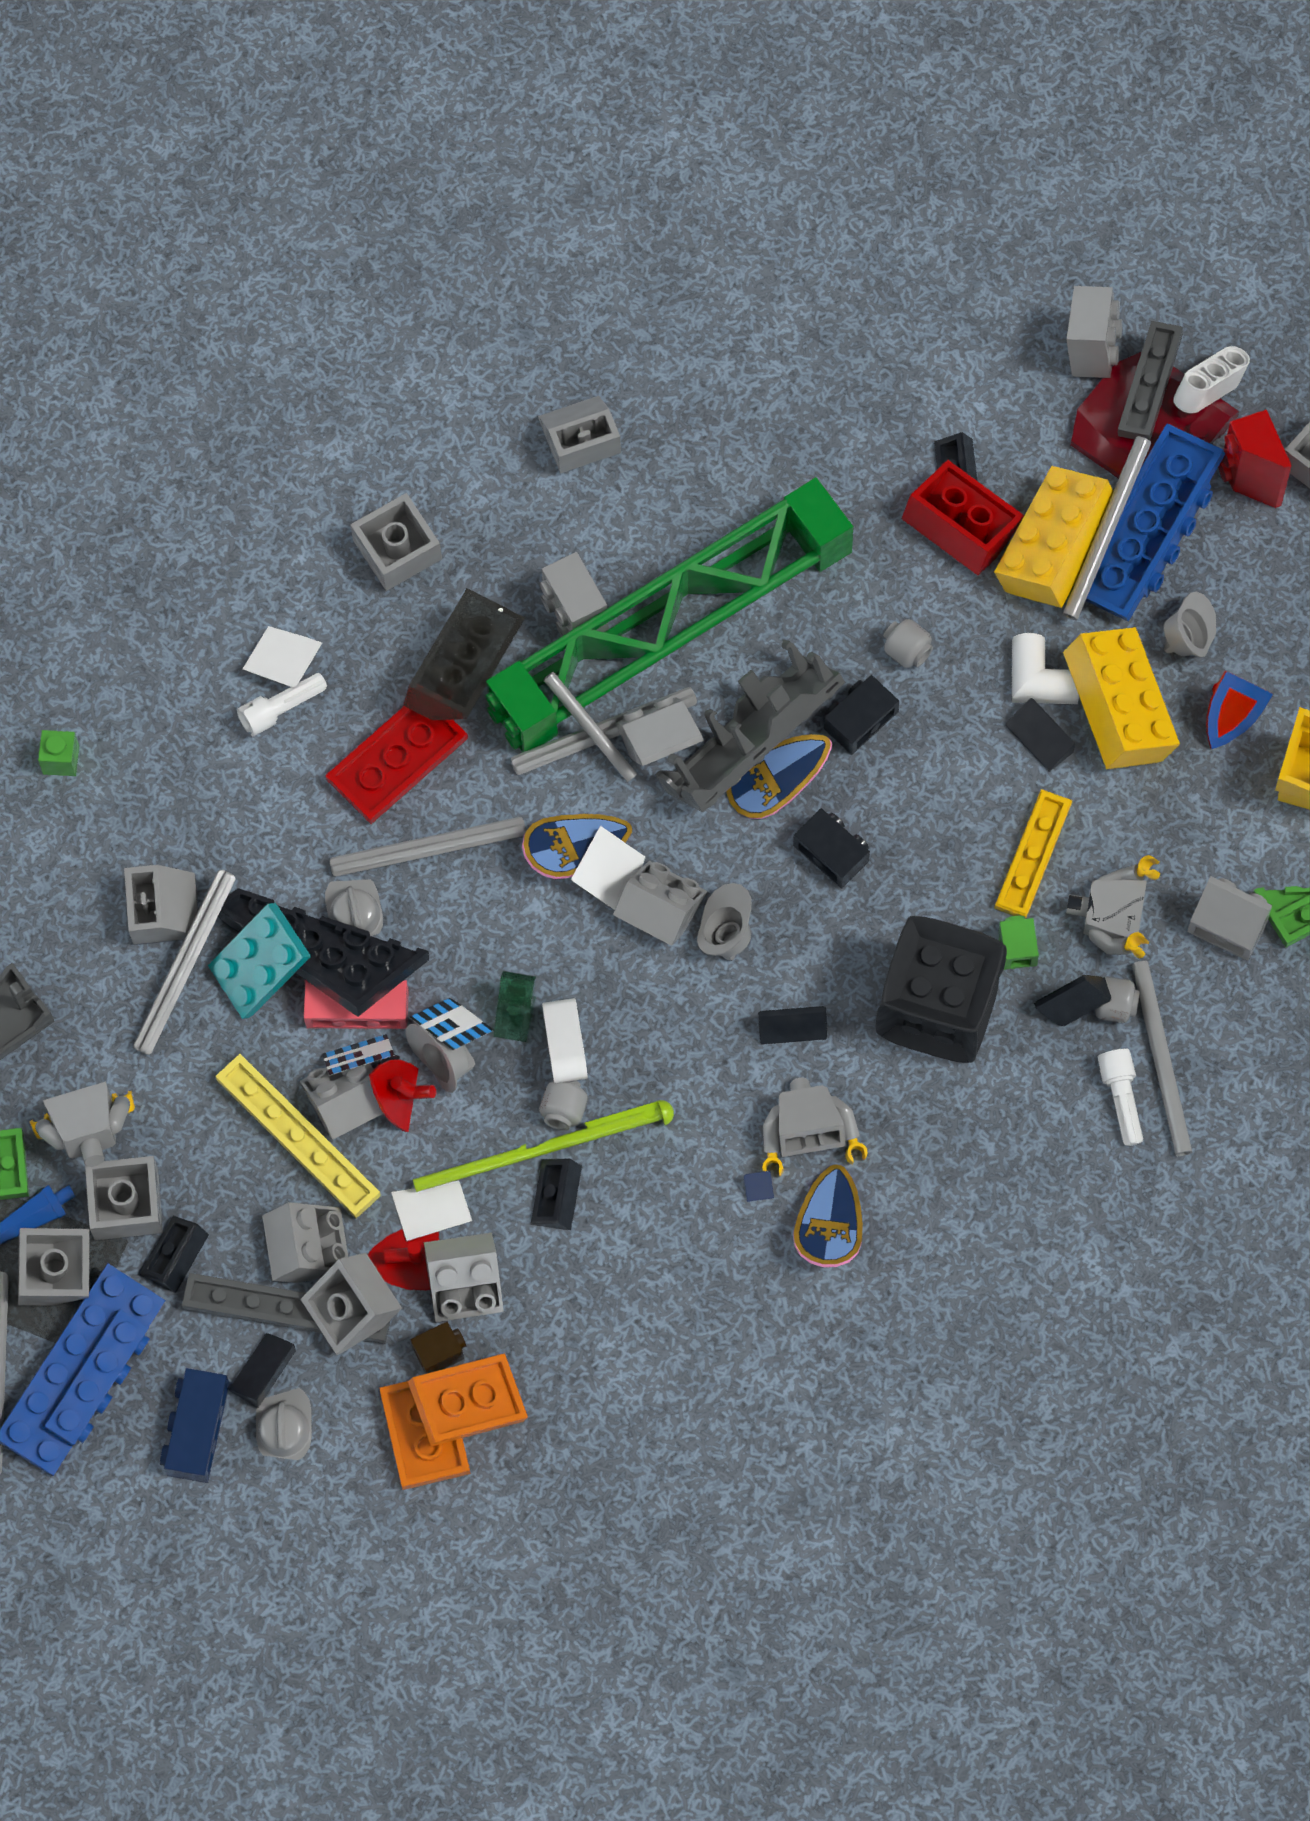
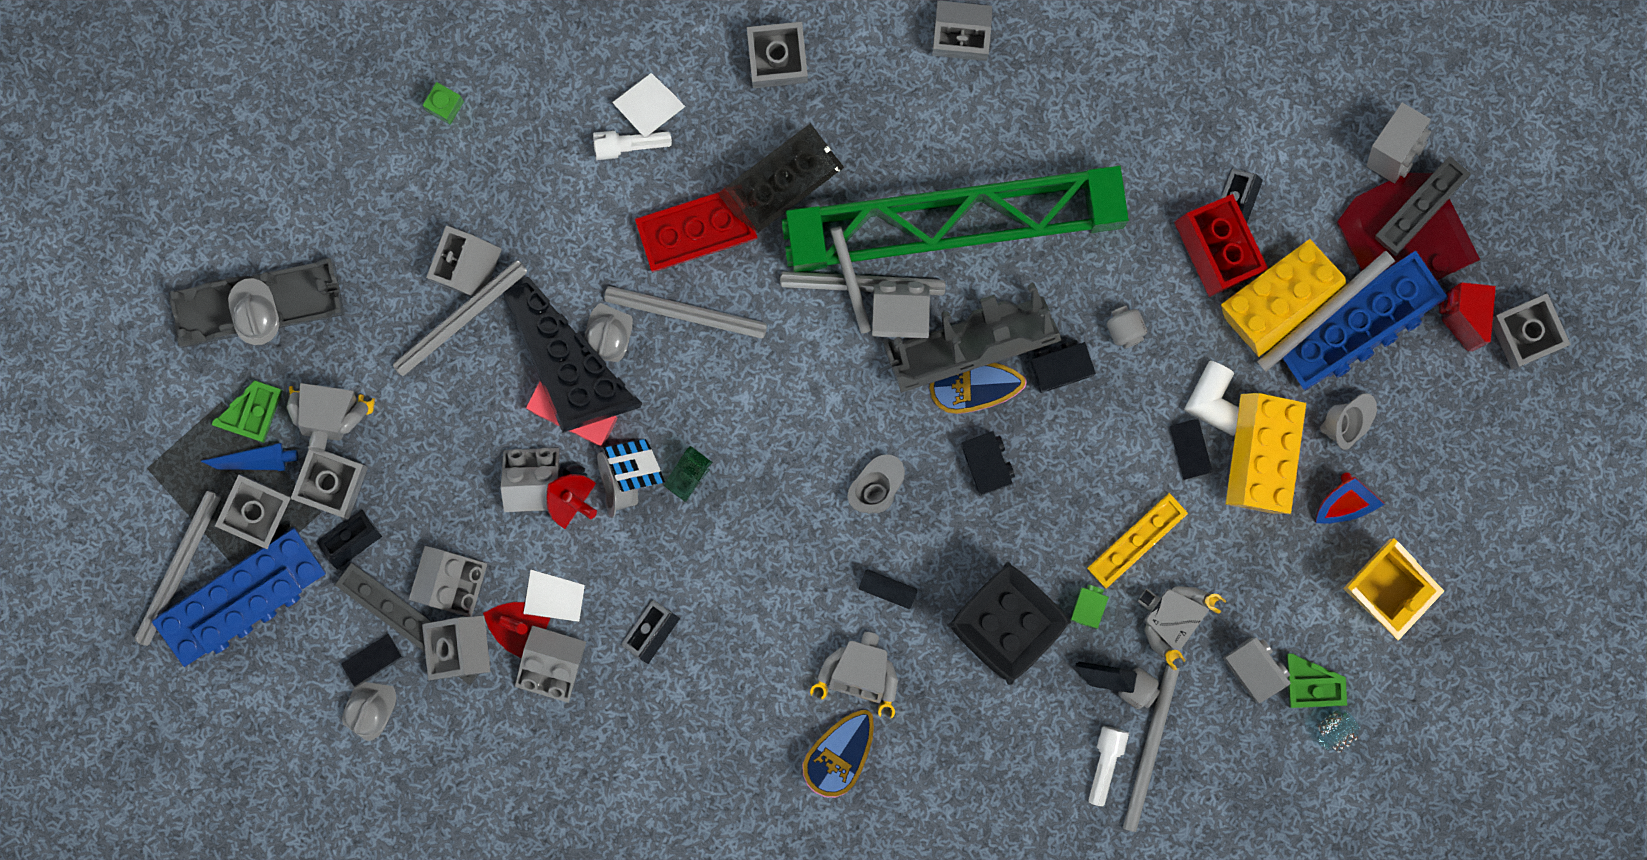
camera: 25 degrees right, 15 degrees up
(195, 1425) = (302, 681): dark blue brick -> none
(259, 960) = (513, 347): teal plate -> none
(298, 1136) = (481, 494): light yellow plate -> none
(358, 1054) = (553, 454): sticker -> none
(415, 1458) = (467, 766): orange plate -> none
(439, 1347) = (506, 710): dark brown brick -> none
(467, 1399) = (507, 762): orange plate -> none
(559, 842) = (793, 365): shield -> none
(563, 1104) = (687, 567): light grey head -> none
(564, 1040) = (711, 520): white beam -> none
(571, 593) = (889, 167): light grey brick -> none
(595, 1129) = (702, 597): lime bar -> none
(607, 867) = (811, 397): white sticker -> none
(659, 902) = (836, 443): light grey slope -> none
(758, 1186) = (801, 700): dark blue sticker -> none
(1211, 379) = (1471, 227): white beam -> none

